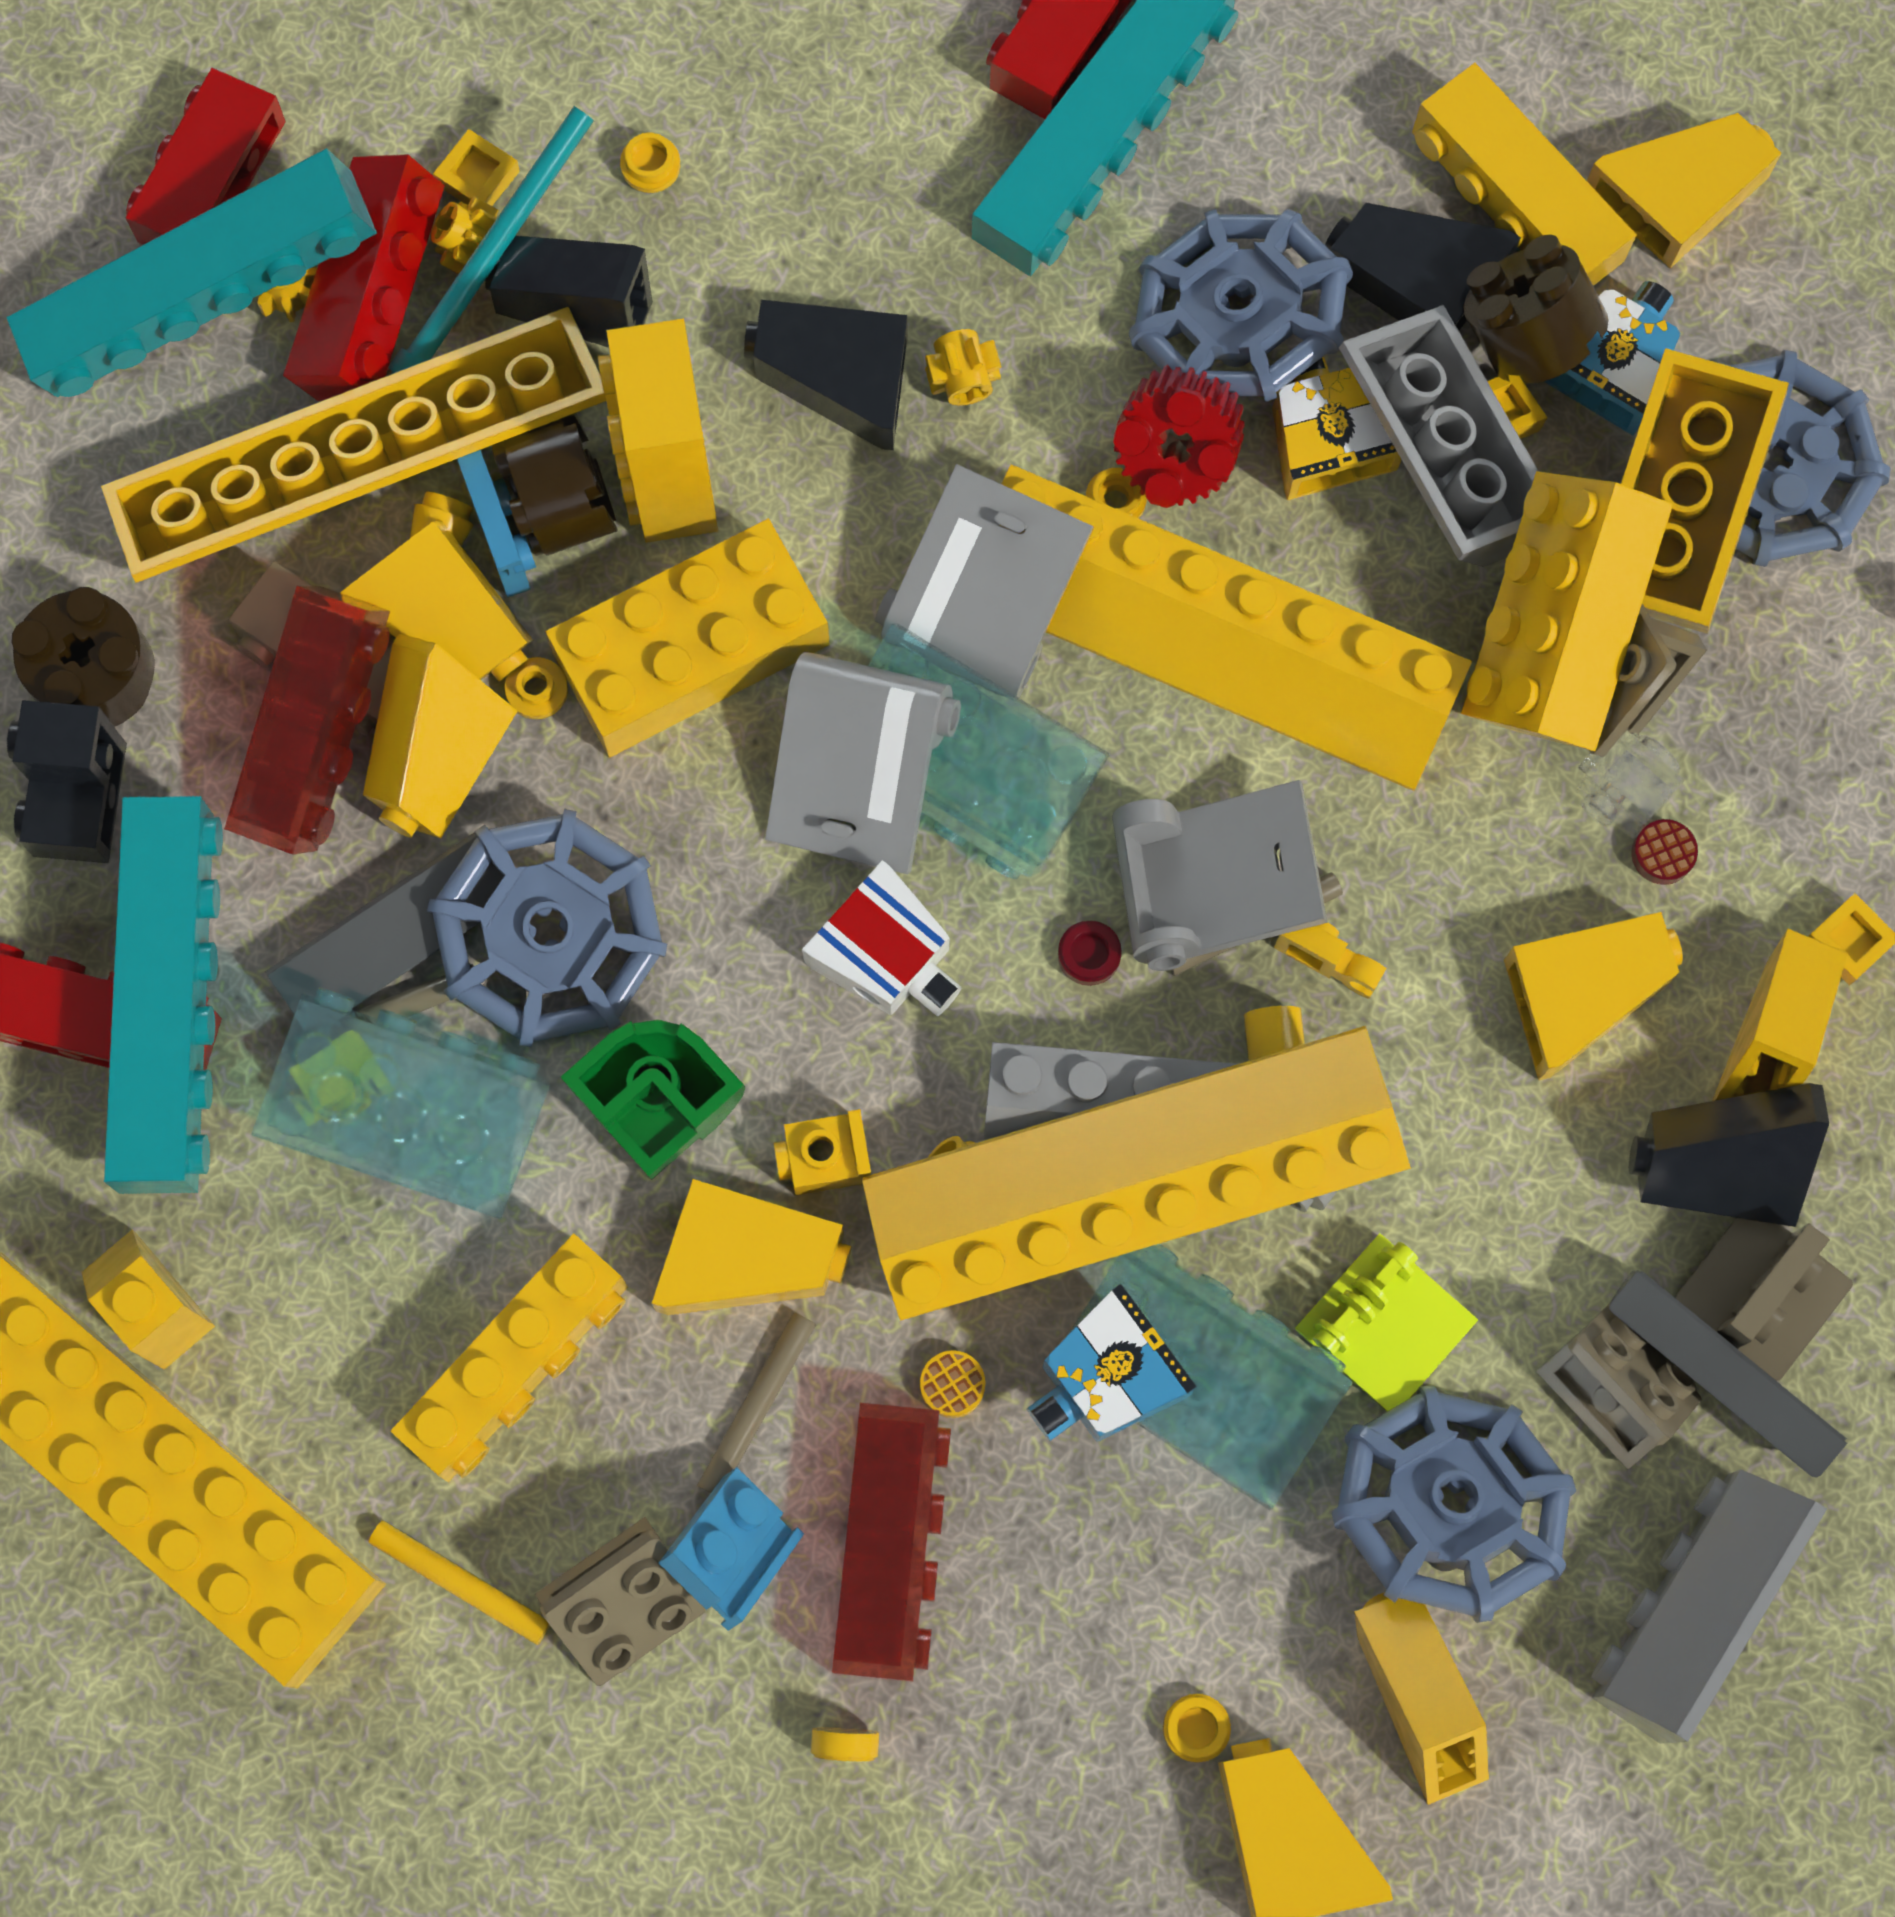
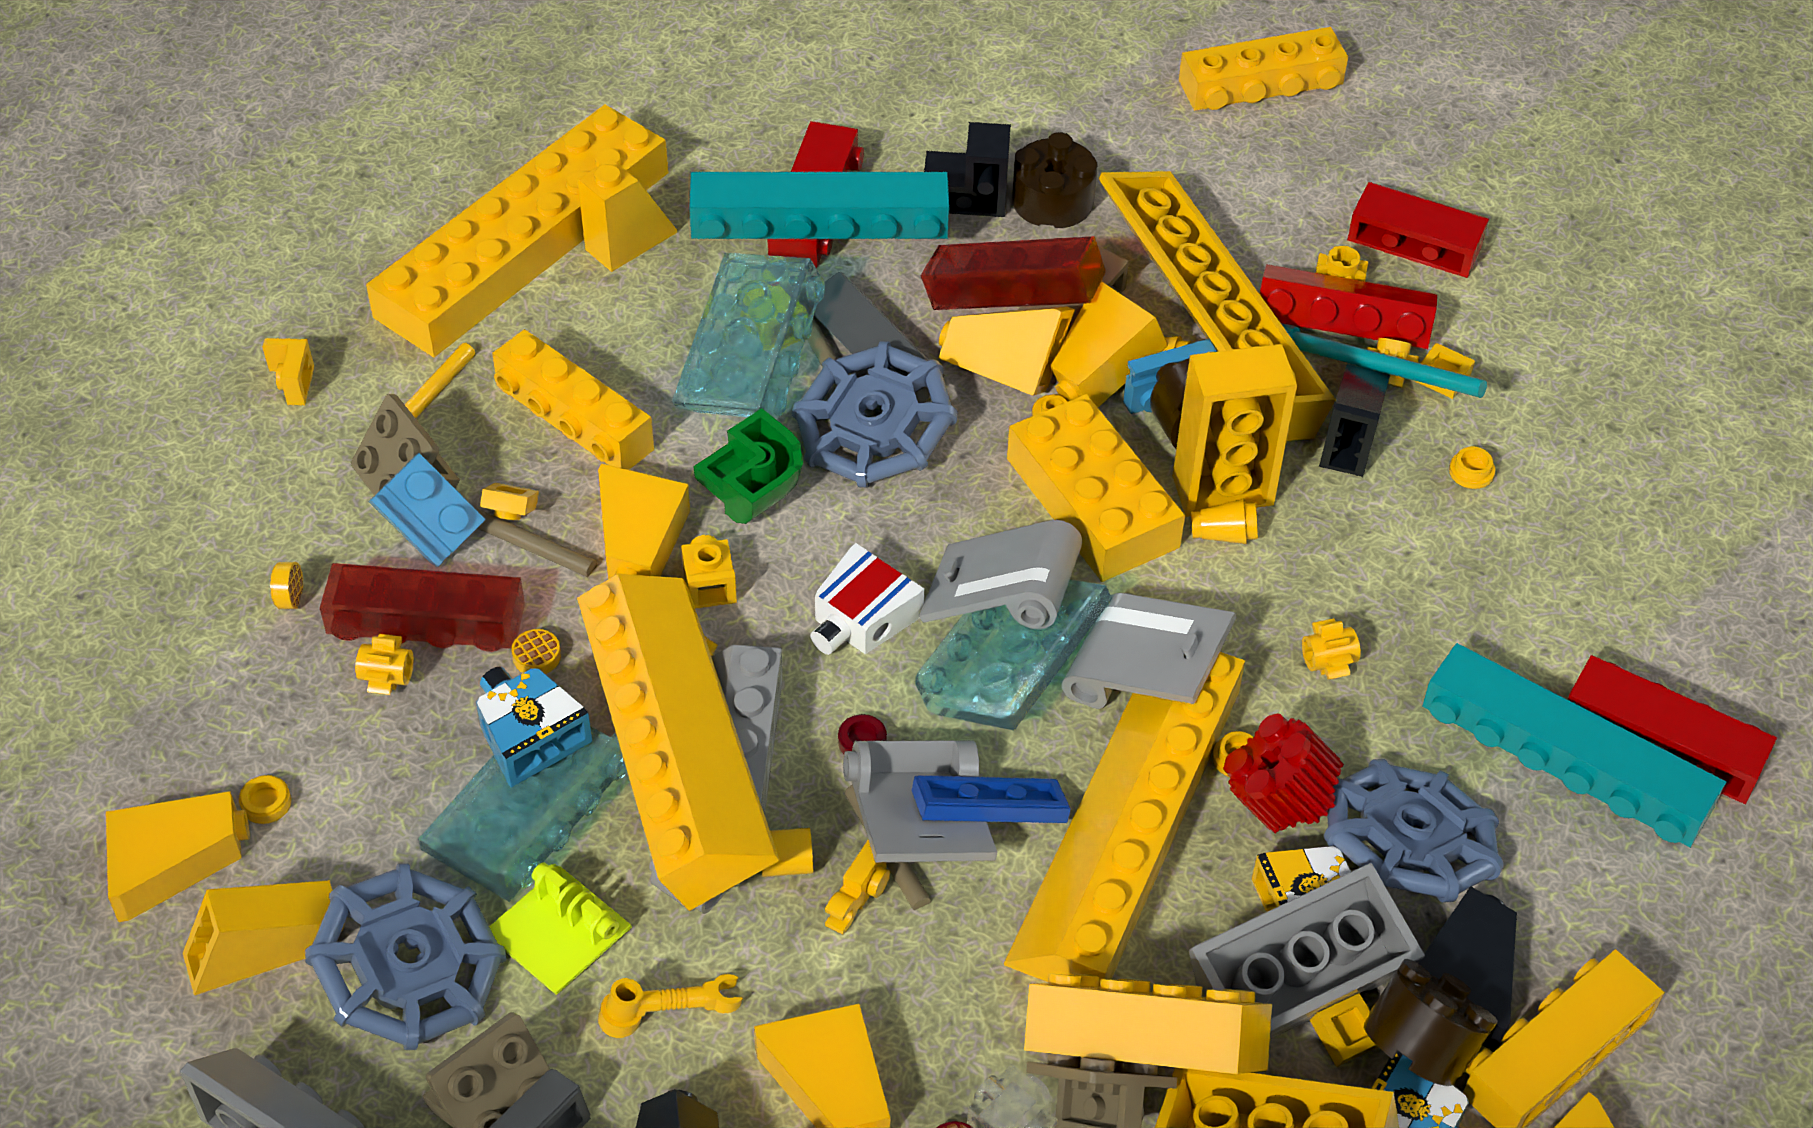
camera: 90 degrees right, 25 degrees down
(192, 275) = (1331, 211): teal brick -> none
(436, 1793) = (293, 367): none -> yellow bracket
(690, 1438) = (509, 501): none -> yellow plate
(743, 474) = (1226, 522): none -> yellow cone
(833, 363) = (1321, 573): black slope -> none
(990, 1585) = (384, 664): none -> yellow gear
(1204, 791) = (990, 799): none -> blue tile
(1495, 1245) = (627, 1003): none -> yellow brick

